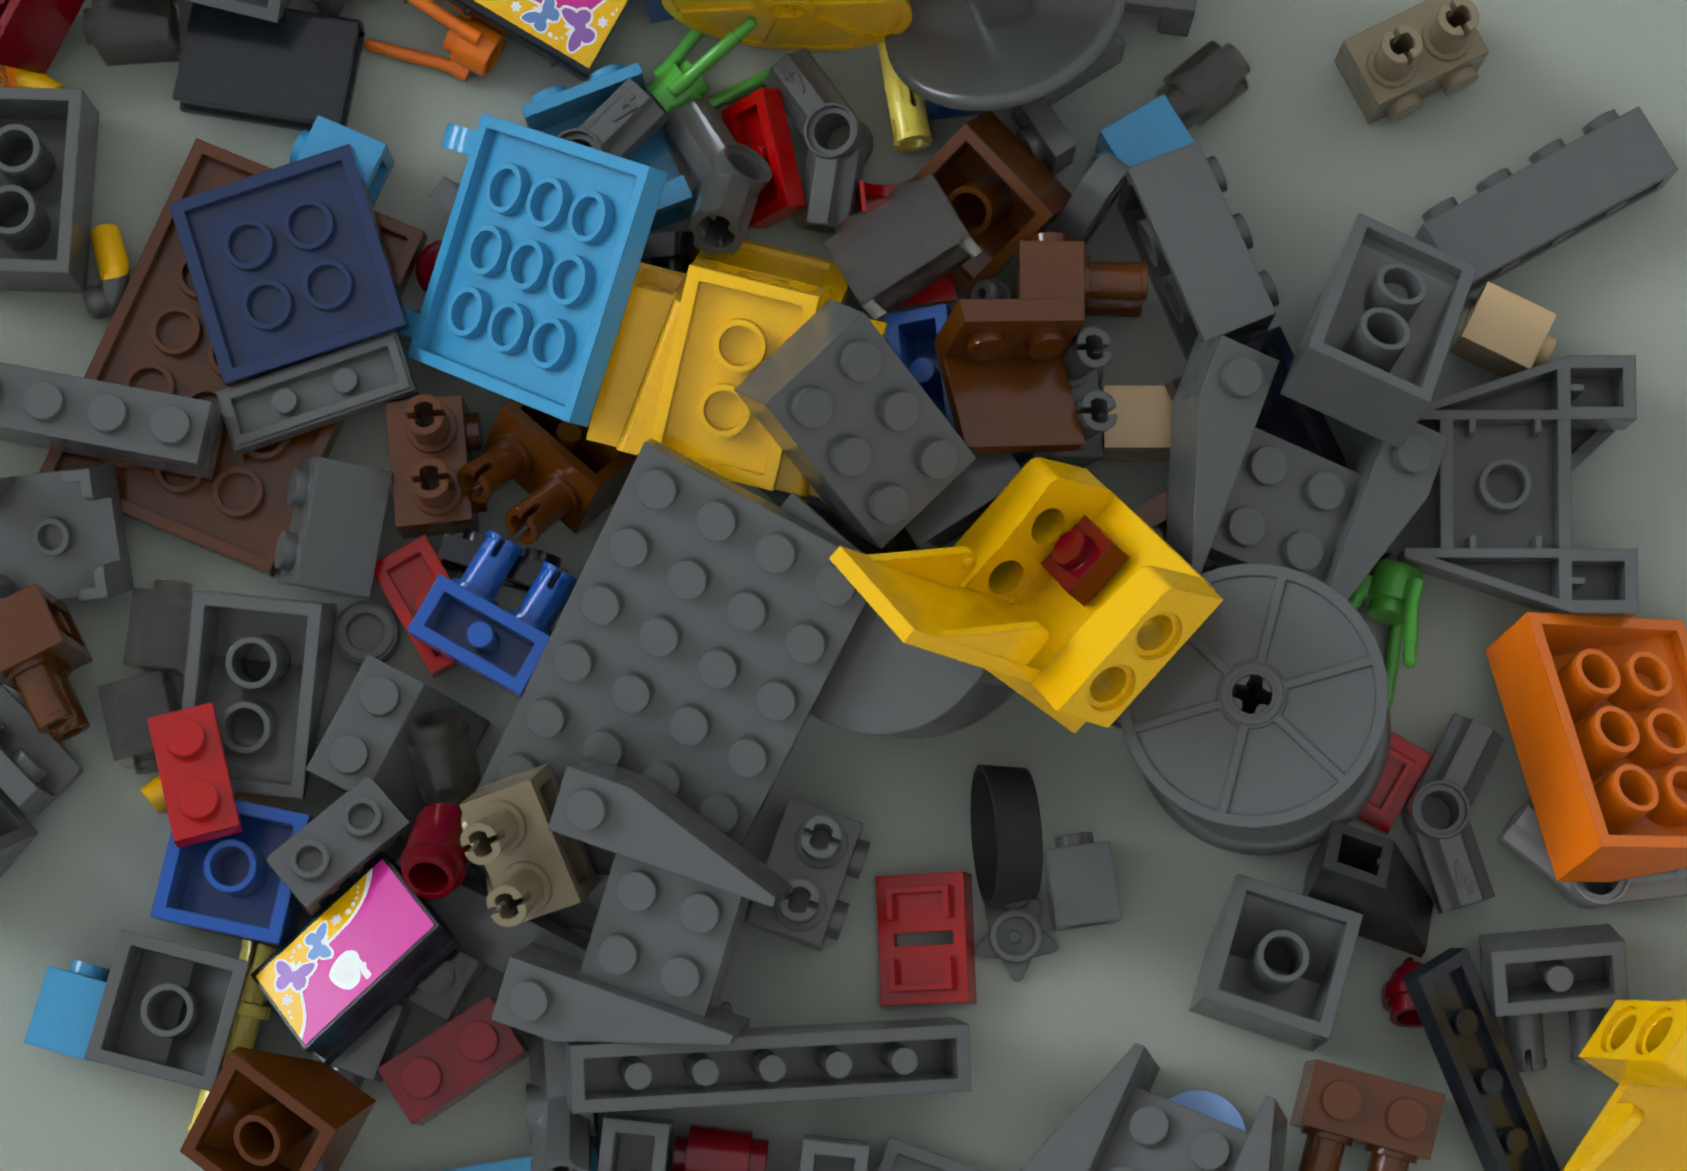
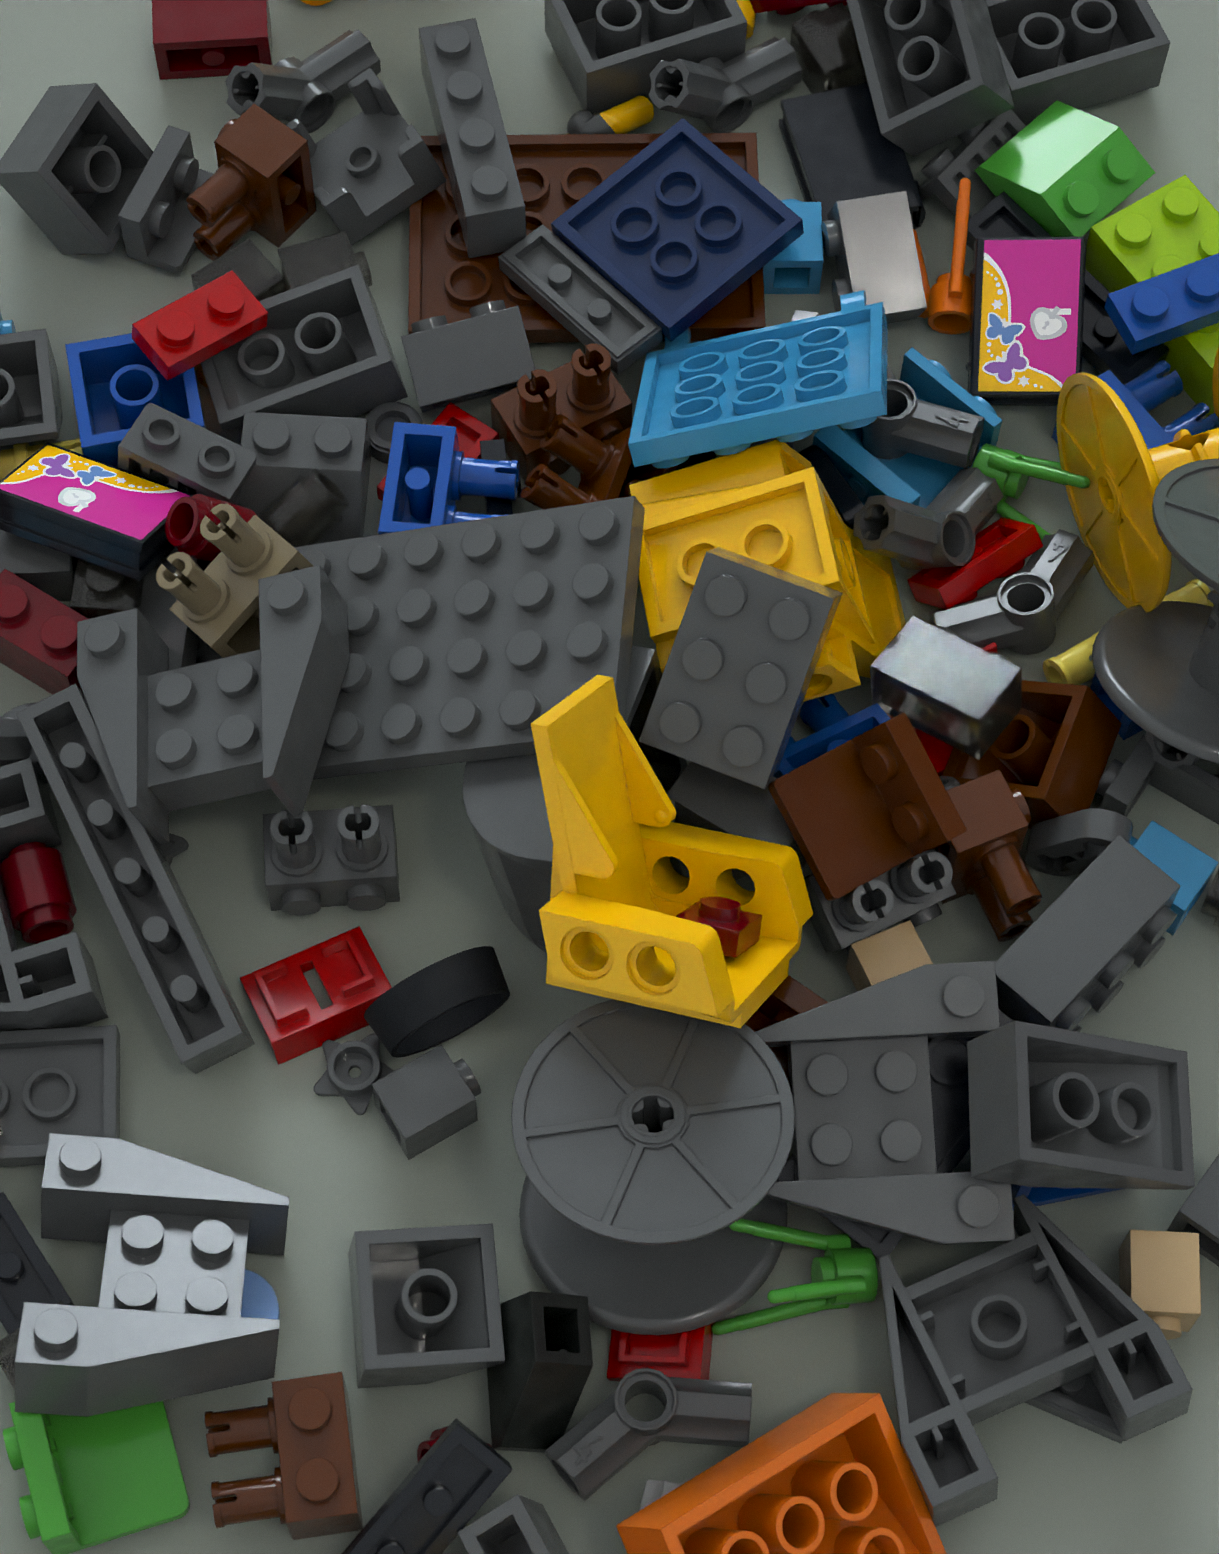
camera: 65 degrees right, 15 degrees down
(128, 142) = (725, 91): none -> dark grey piece
(403, 93) = (876, 254): none -> brick

